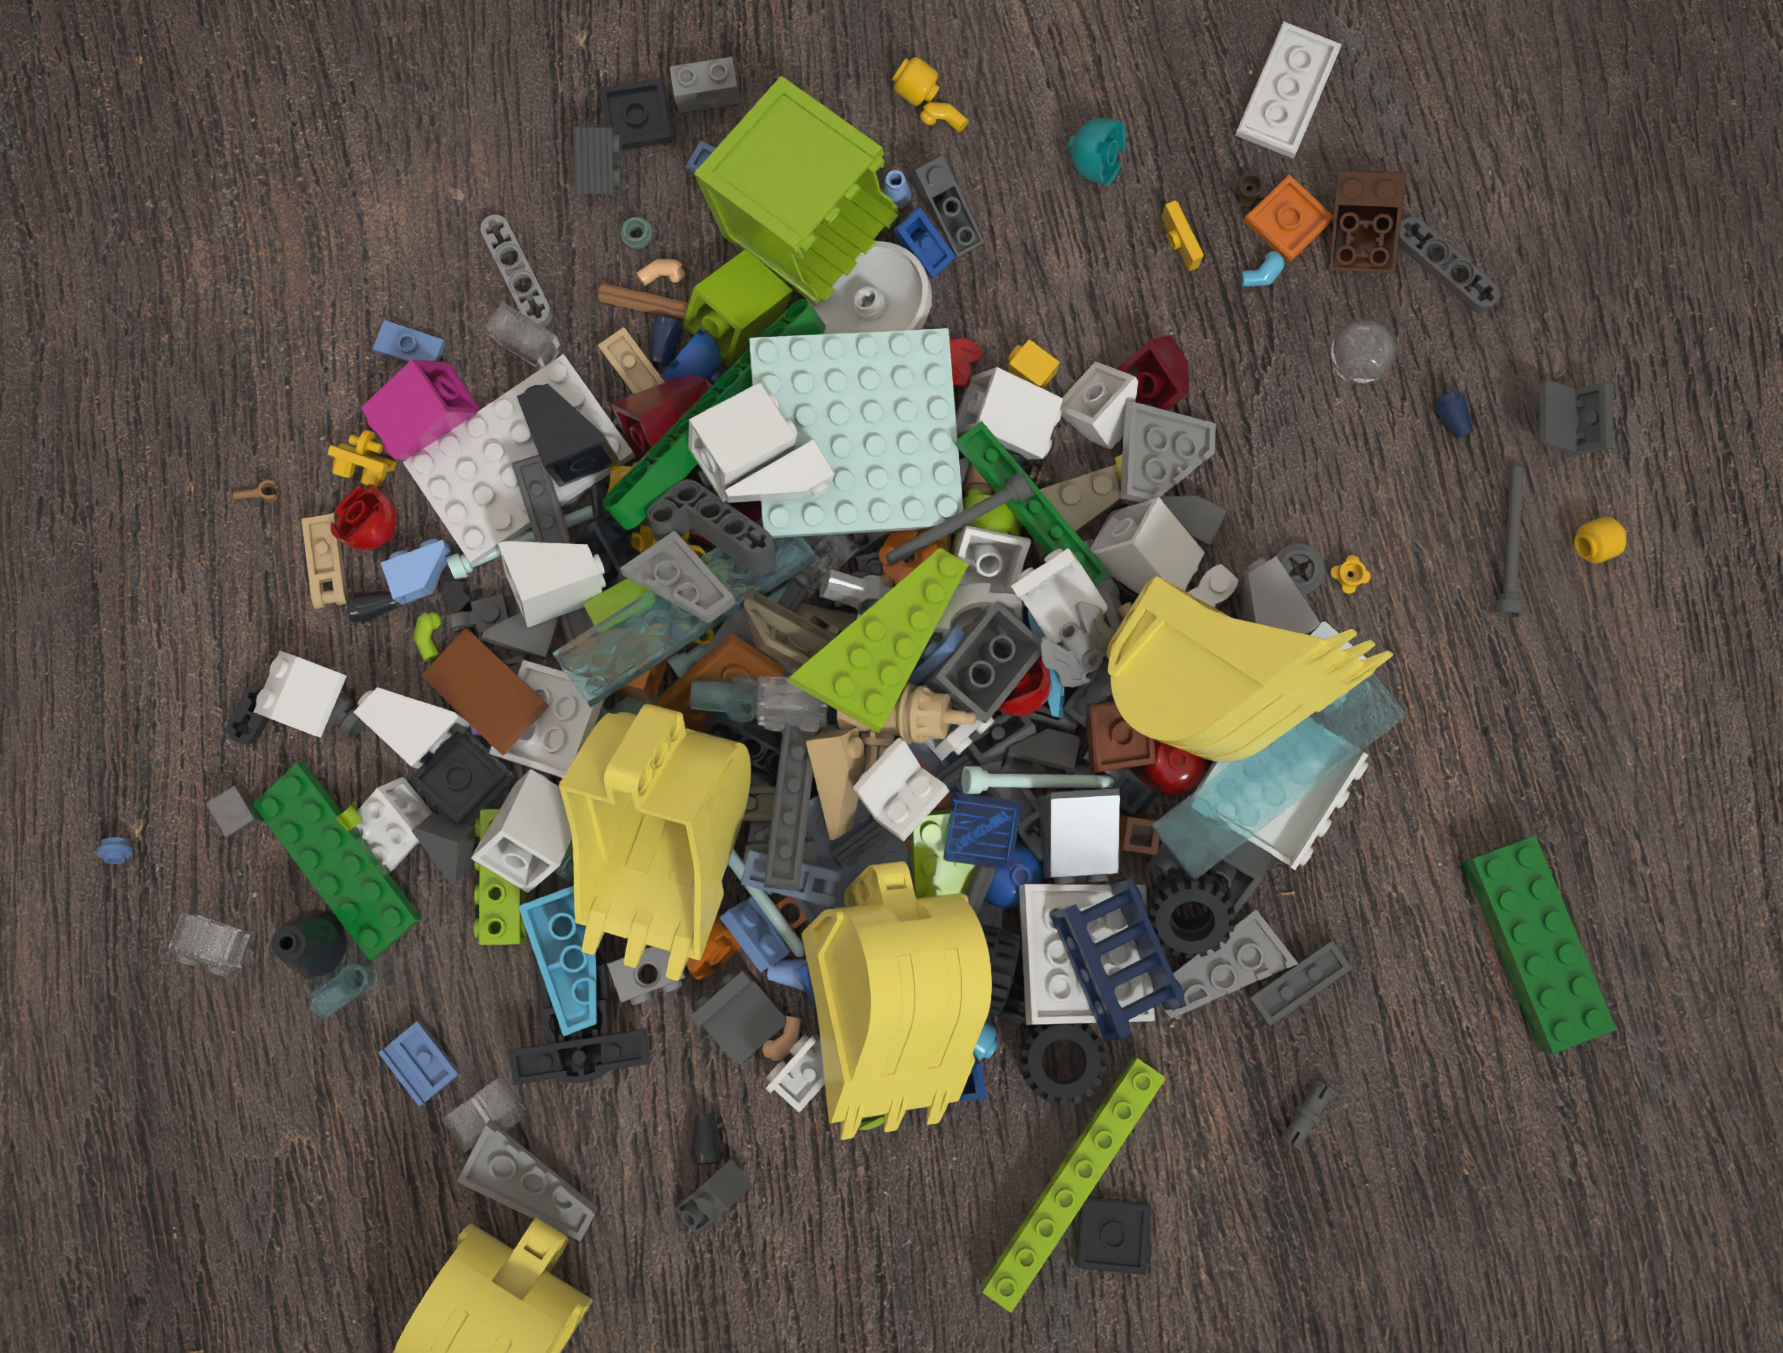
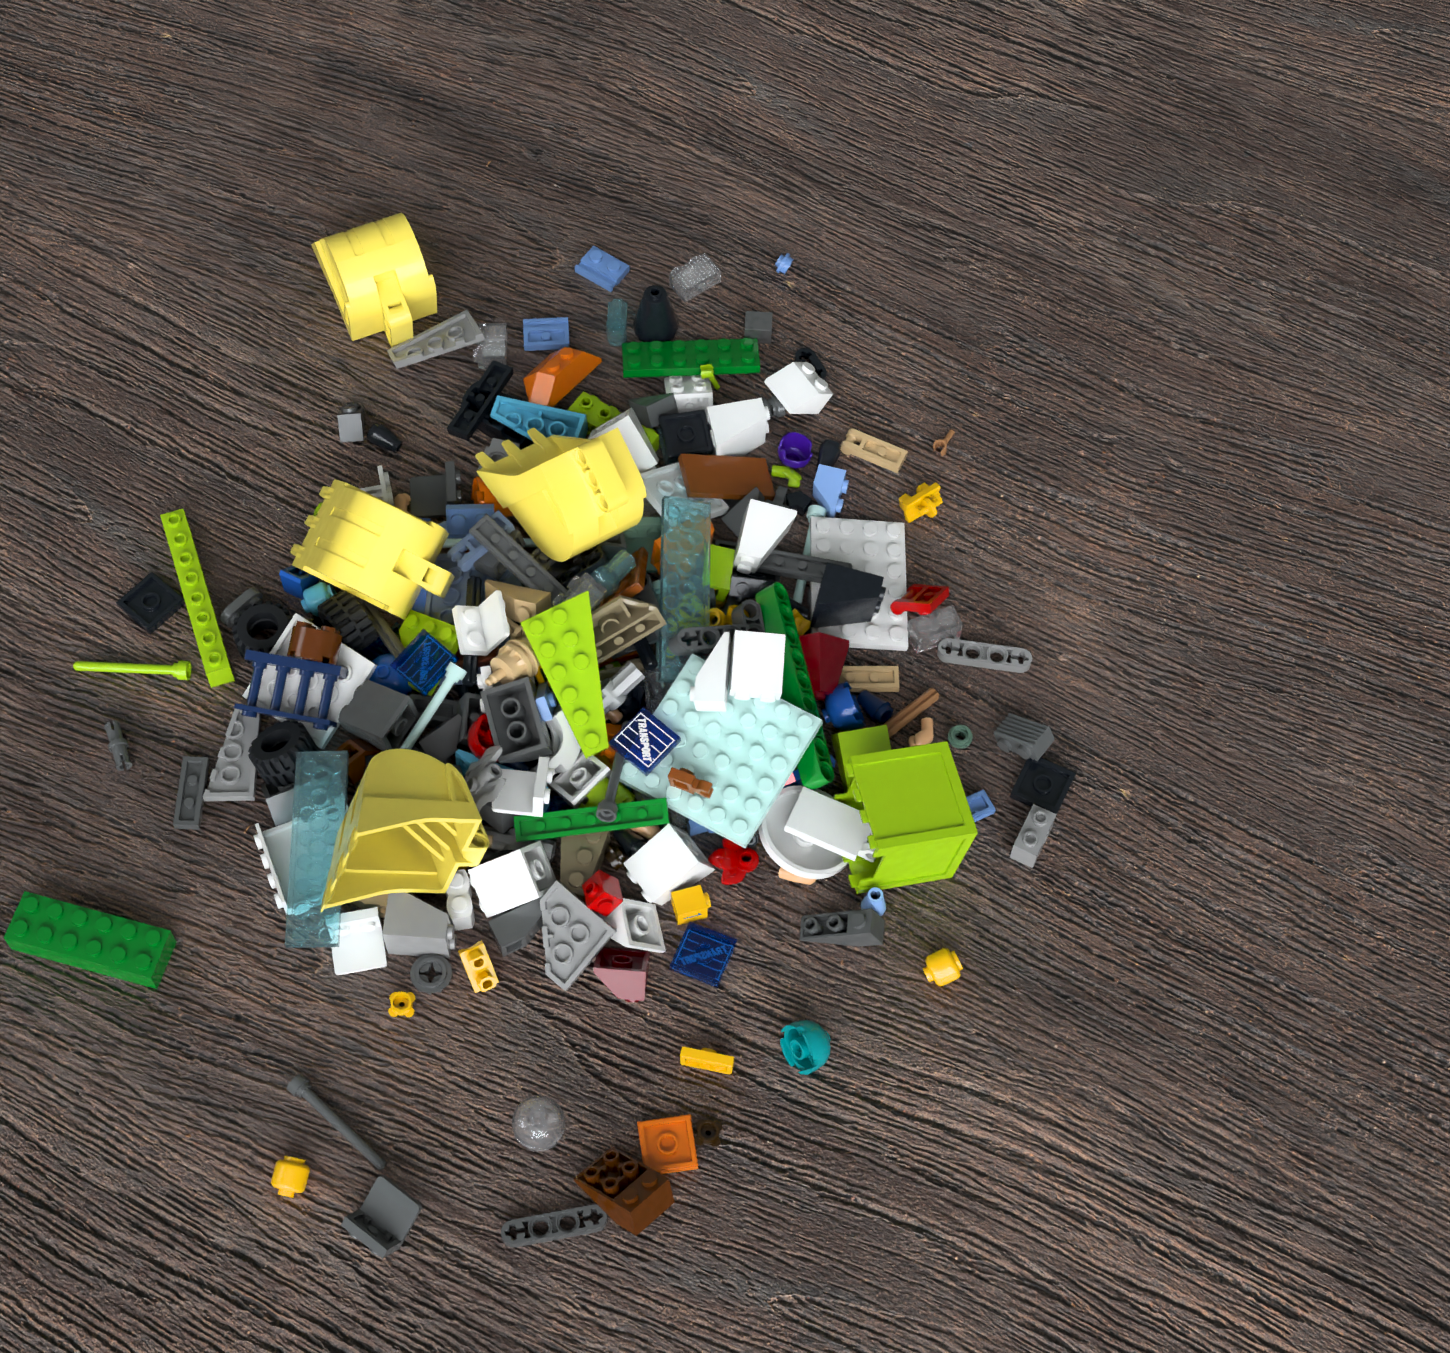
camera: 120 degrees right, 20 degrees down
(271, 1072) = (602, 268): none -> medium blue plate
(365, 519) = (879, 479): red cylinder -> none
(389, 643) = (795, 450): none -> dark purple hair
(407, 343) = (978, 570): medium blue plate -> none
(418, 407) = (929, 549): dark pink slope -> none
(478, 996) = (558, 375): none -> orange wedge
(497, 358) = (920, 599): none -> red plate
(680, 577) = (702, 594): light grey wing -> none
(848, 274) = (830, 825): none -> white tile
(909, 508) = (644, 741): none -> clear blue tile
(923, 240) = (822, 892): blue slope -> none
(927, 427) = (687, 781): none -> dark orange plate
(943, 111) = (909, 974): yellow arm -> none
(1032, 1115) = (250, 596): none -> dark grey plate
(1063, 958) = (314, 643): none -> reddish brown brick
(1071, 321) = (703, 954): none -> clear blue tile
(1101, 442) = (602, 893): none -> red brick
(1171, 1123) = (181, 670): none -> lime piece
(1261, 520) = (478, 967): none -> yellow hips
(1267, 272) = (640, 1099): medium azure arm -> none
(1288, 90) = (761, 1215): white tile -> none
(1454, 412) = (450, 1148): dark blue cone -> none

